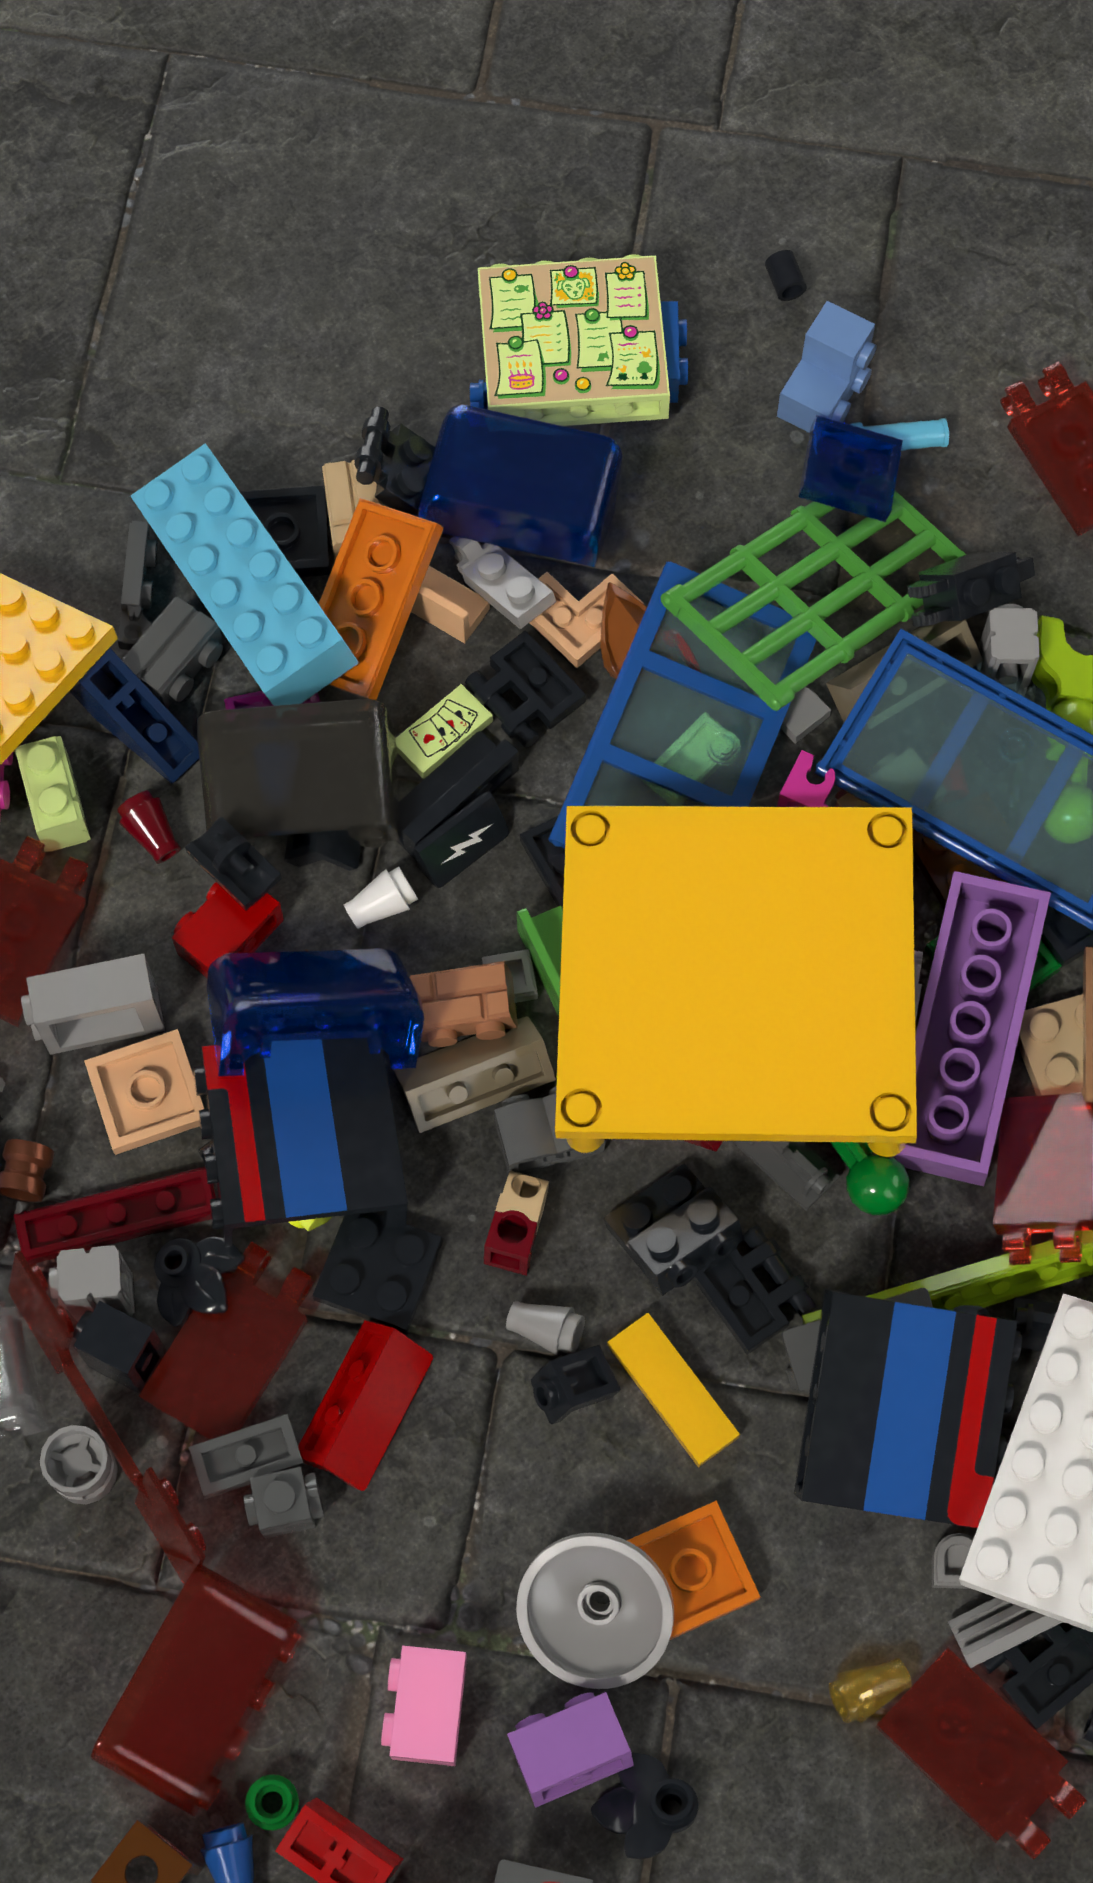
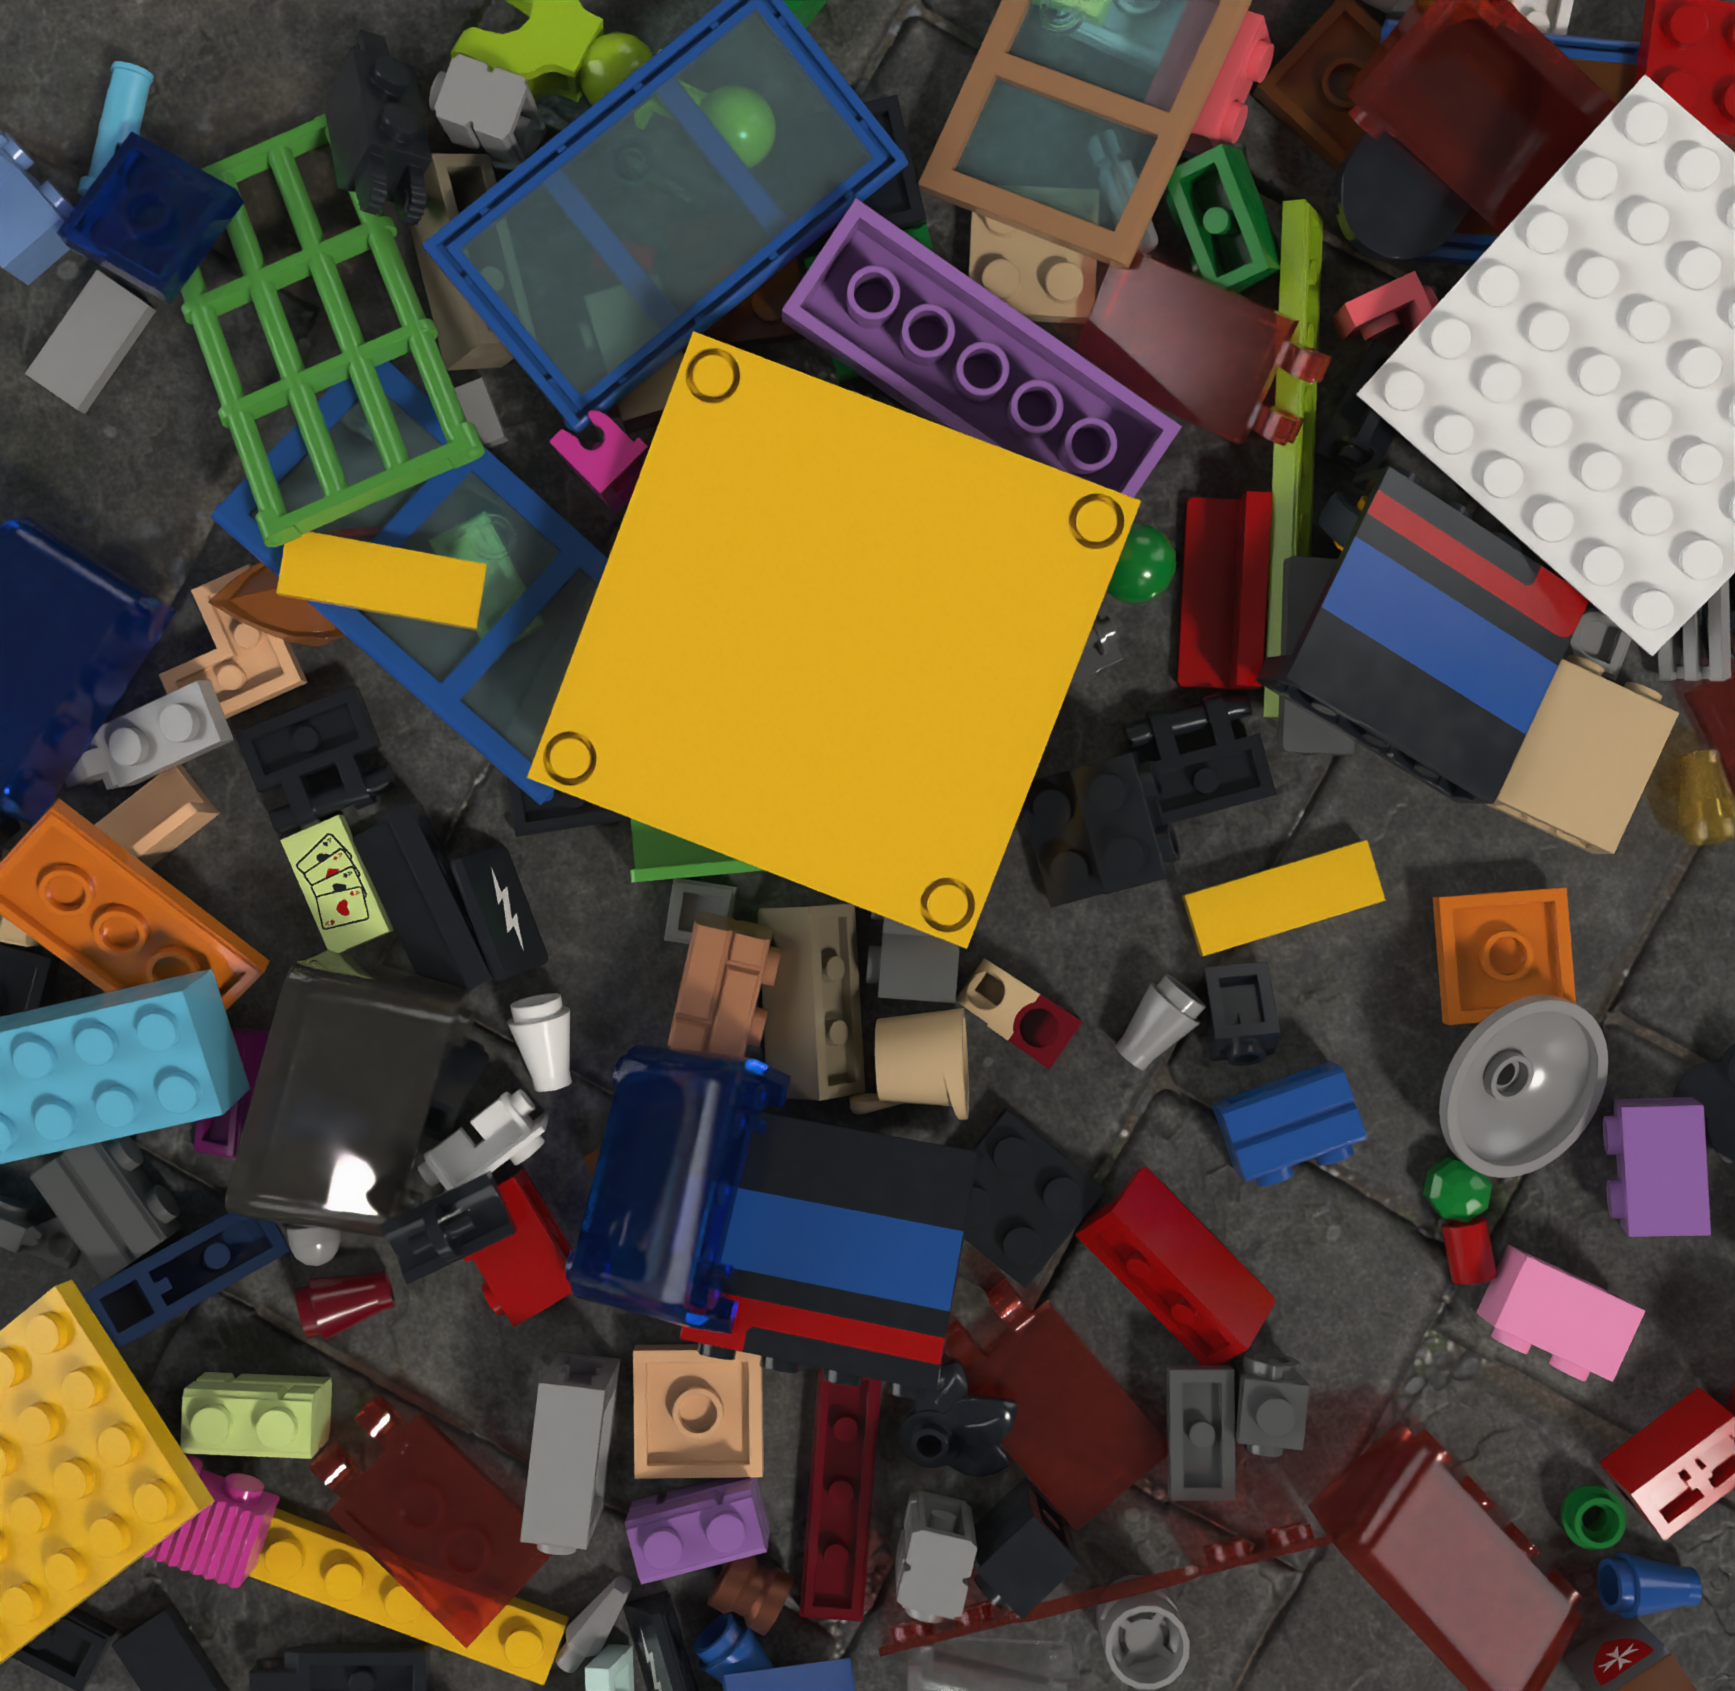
camera: 70 degrees left, 20 degrees up
(62, 1116) = (697, 1527): none -> medium lavender brick
(186, 794) = (312, 1244): none -> light grey hinge
(308, 893) = (506, 1135): none -> white hinge
(452, 1624) = (1469, 1251): none -> red hinge
(458, 1160) = (919, 1062): none -> tan hat
(495, 1601) = (1457, 1190): none -> green tile
(504, 1448) = (1290, 1123): none -> blue brick
(666, 682) = (382, 579): none -> yellow tile
(754, 463) = (90, 342): none -> light grey tile
(866, 1572) = (1586, 757): none -> tan brick
(884, 1261) = (1224, 592): none -> red panel

